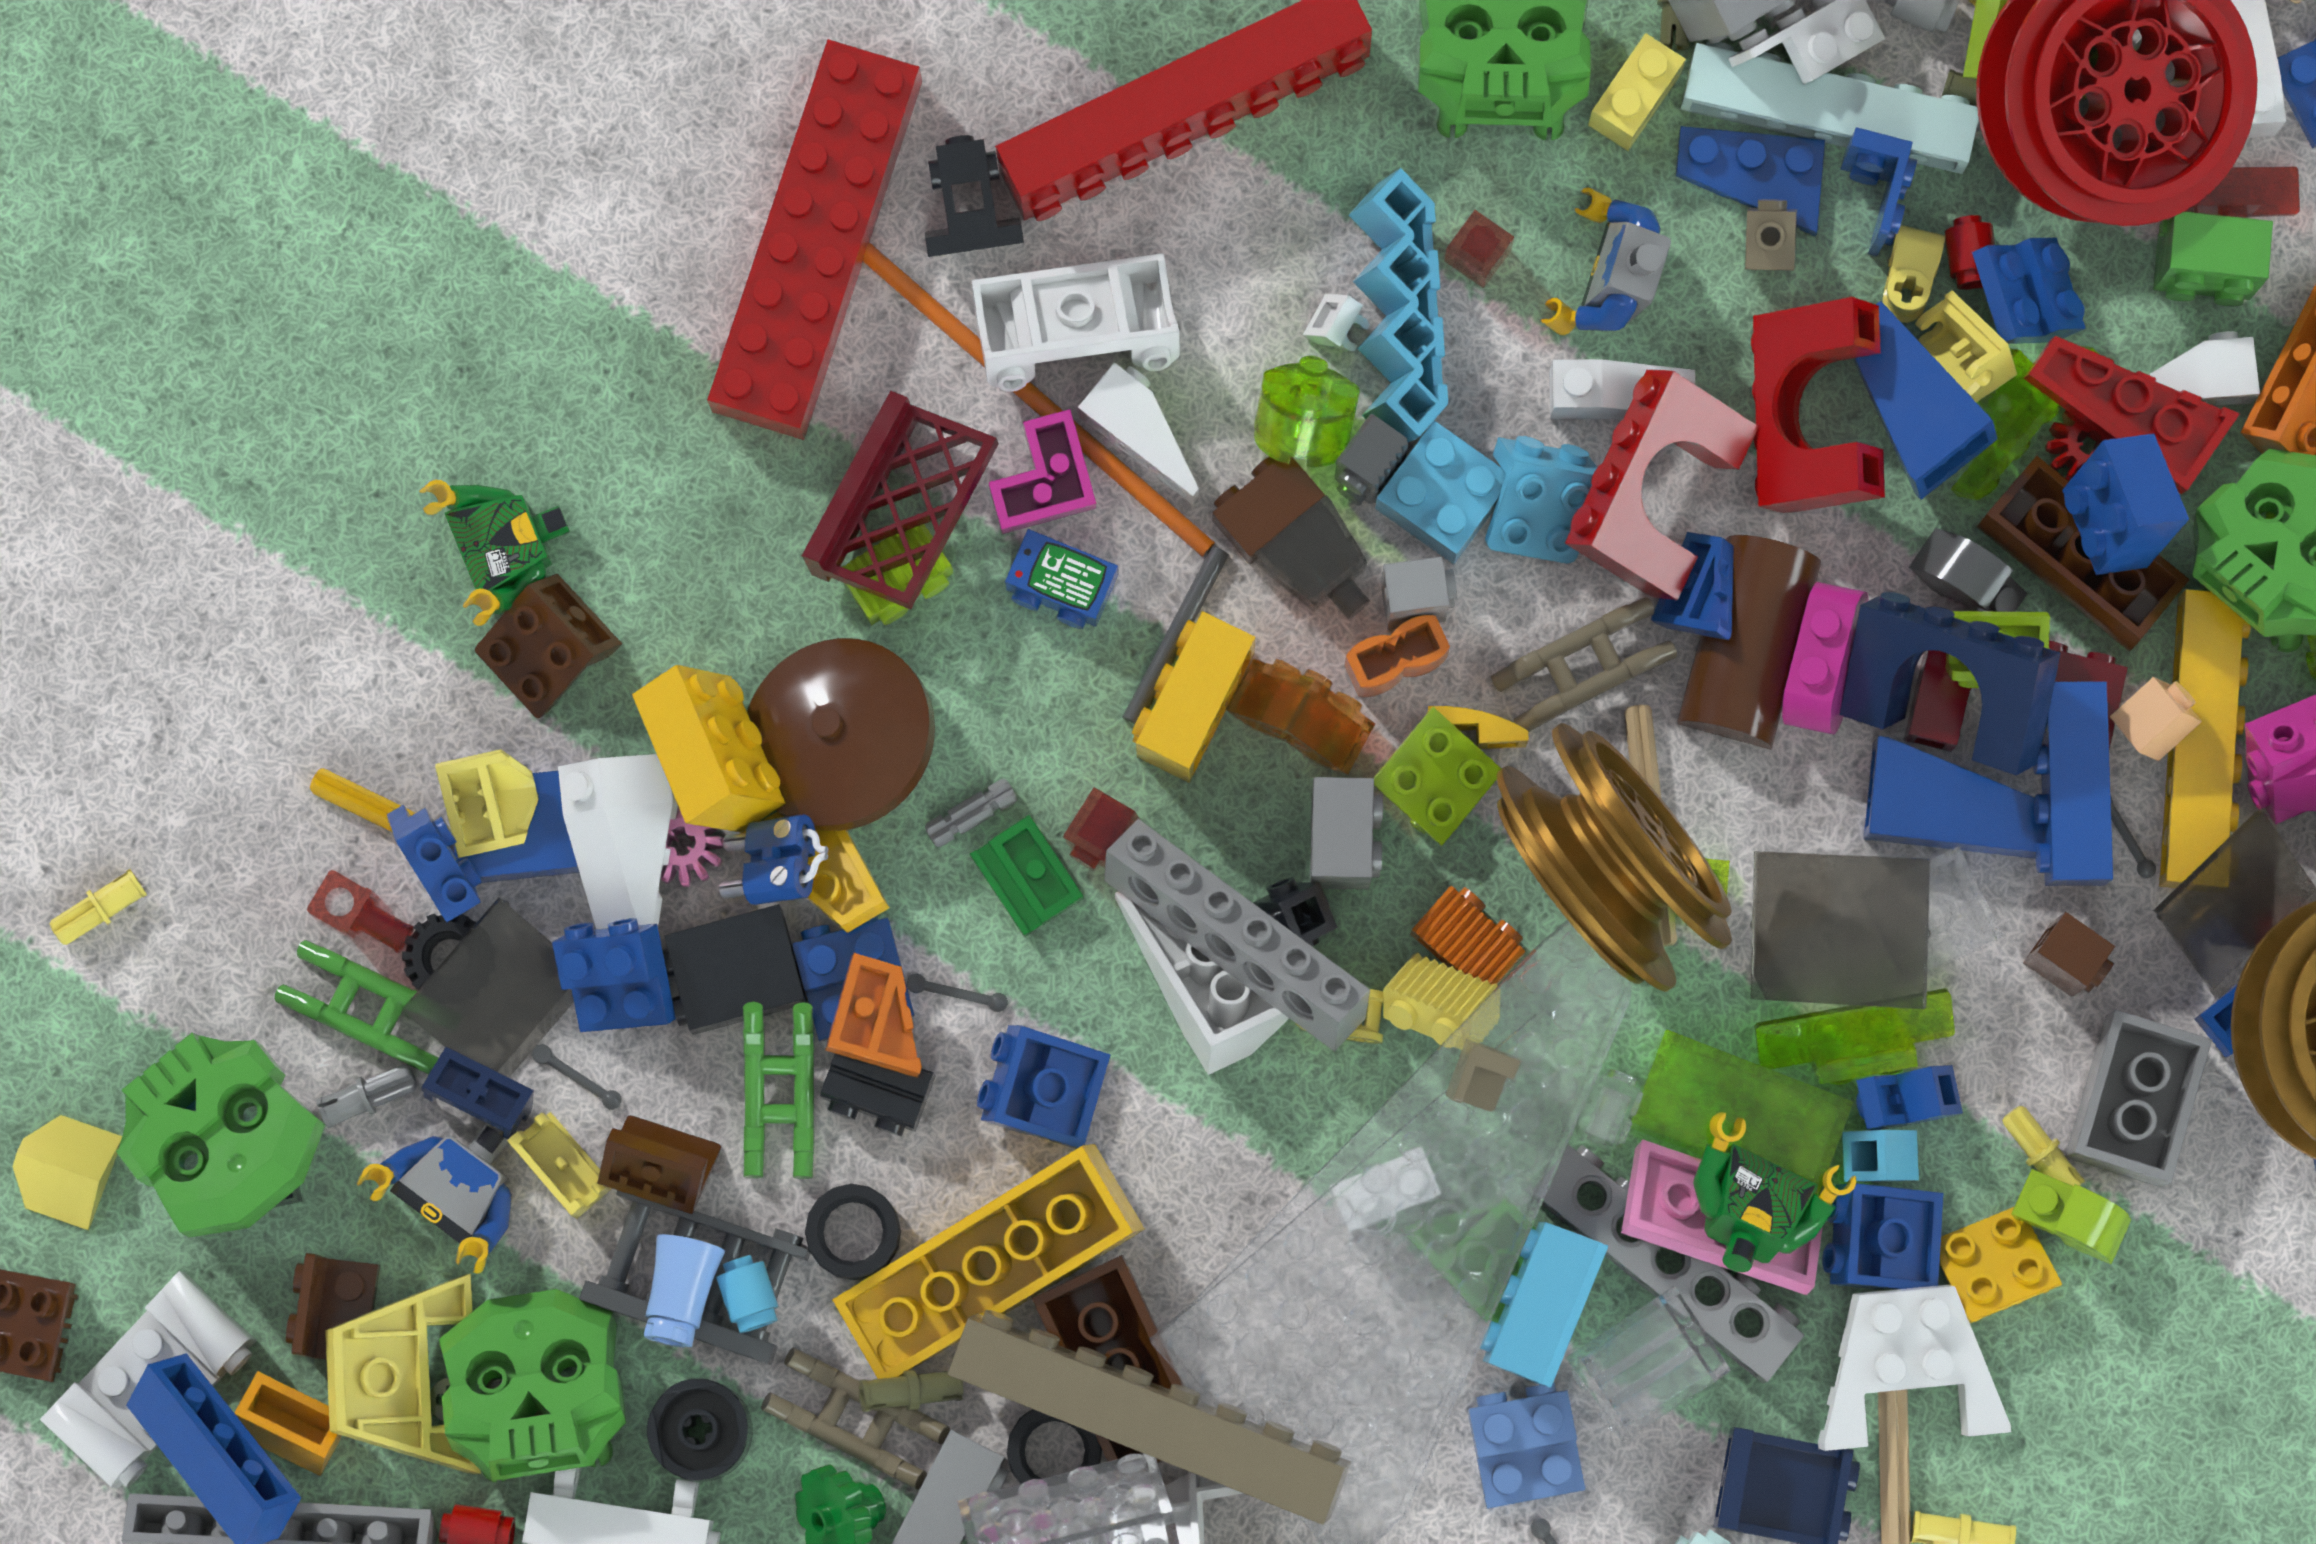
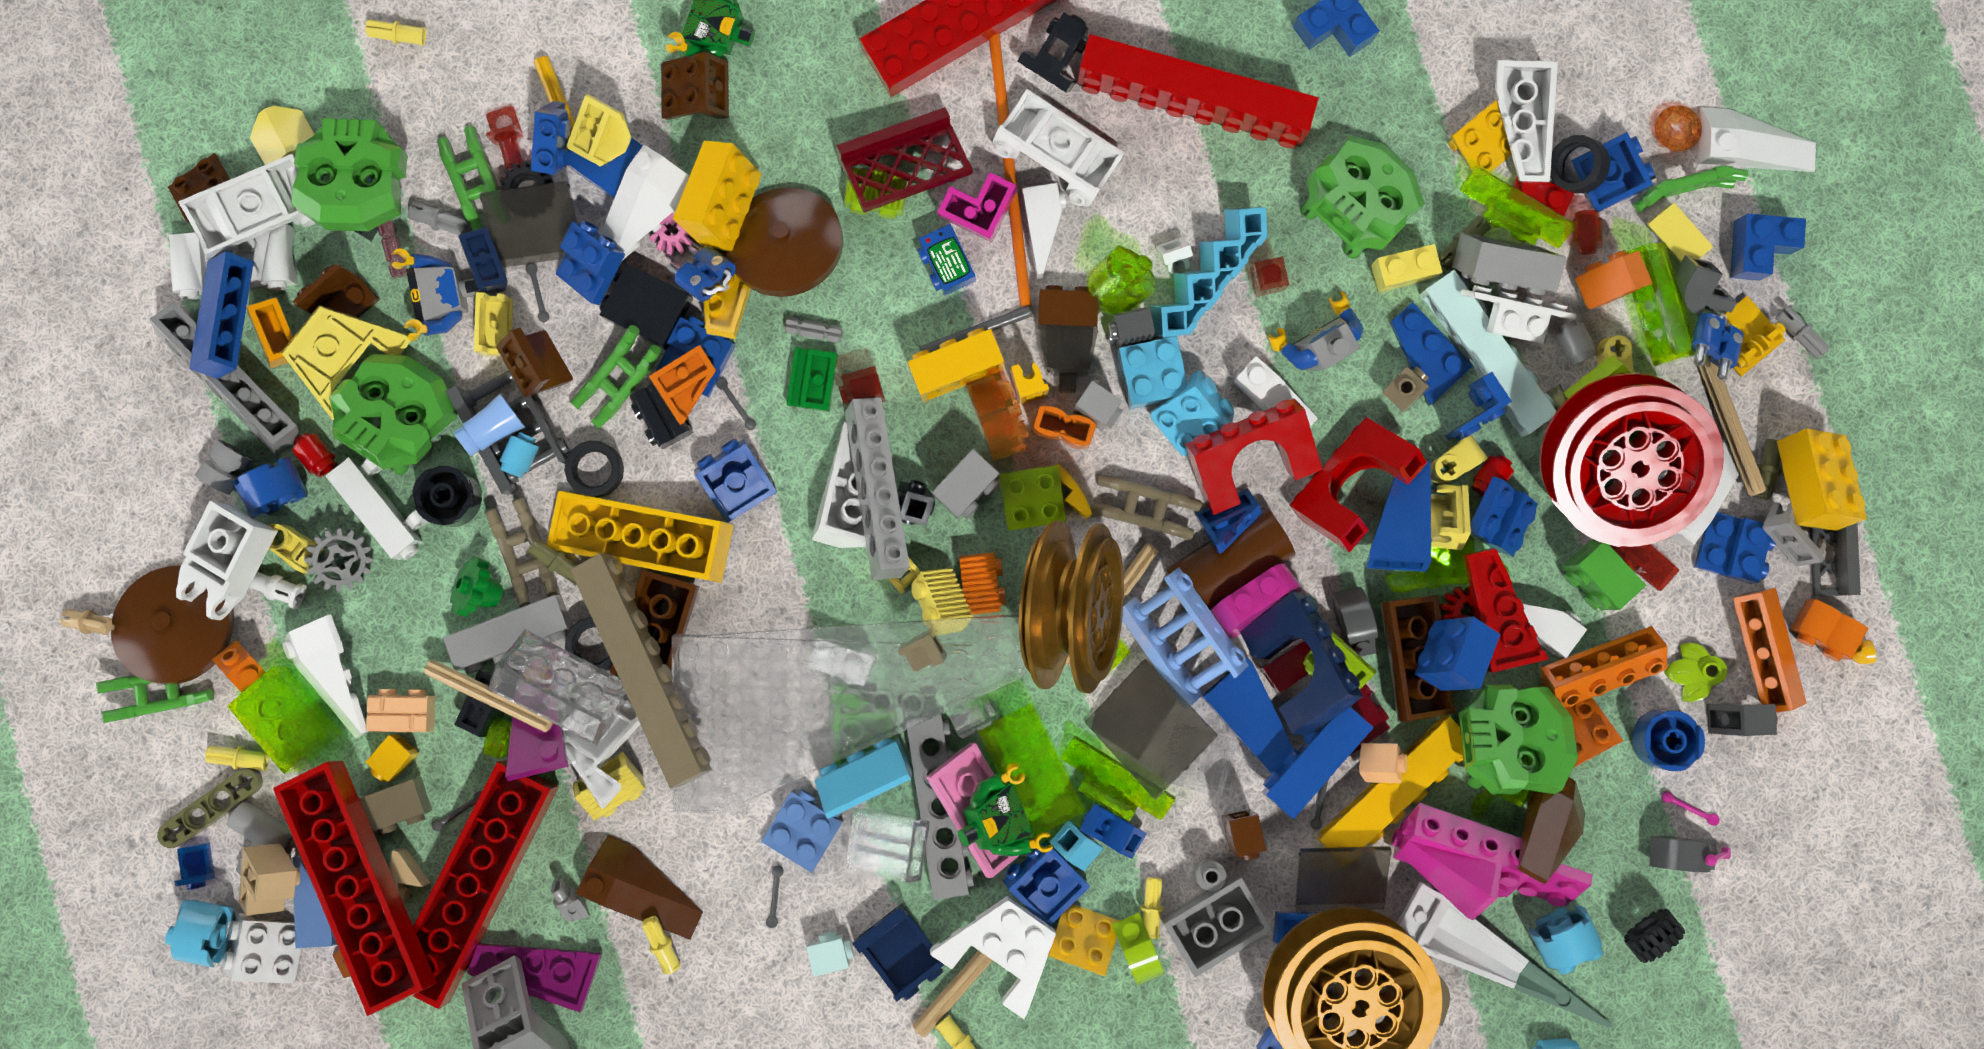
camera: 40 degrees right, 5 degrees up
(115, 1291) = (244, 207): none -> white piece
(344, 1189) = (391, 243): none -> clear pink axle
(1308, 643) = (1028, 388): none -> yellow hinge
(1784, 830) = (1163, 657): none -> light blue fence
(2062, 1053) = (1205, 866): none -> light grey brick

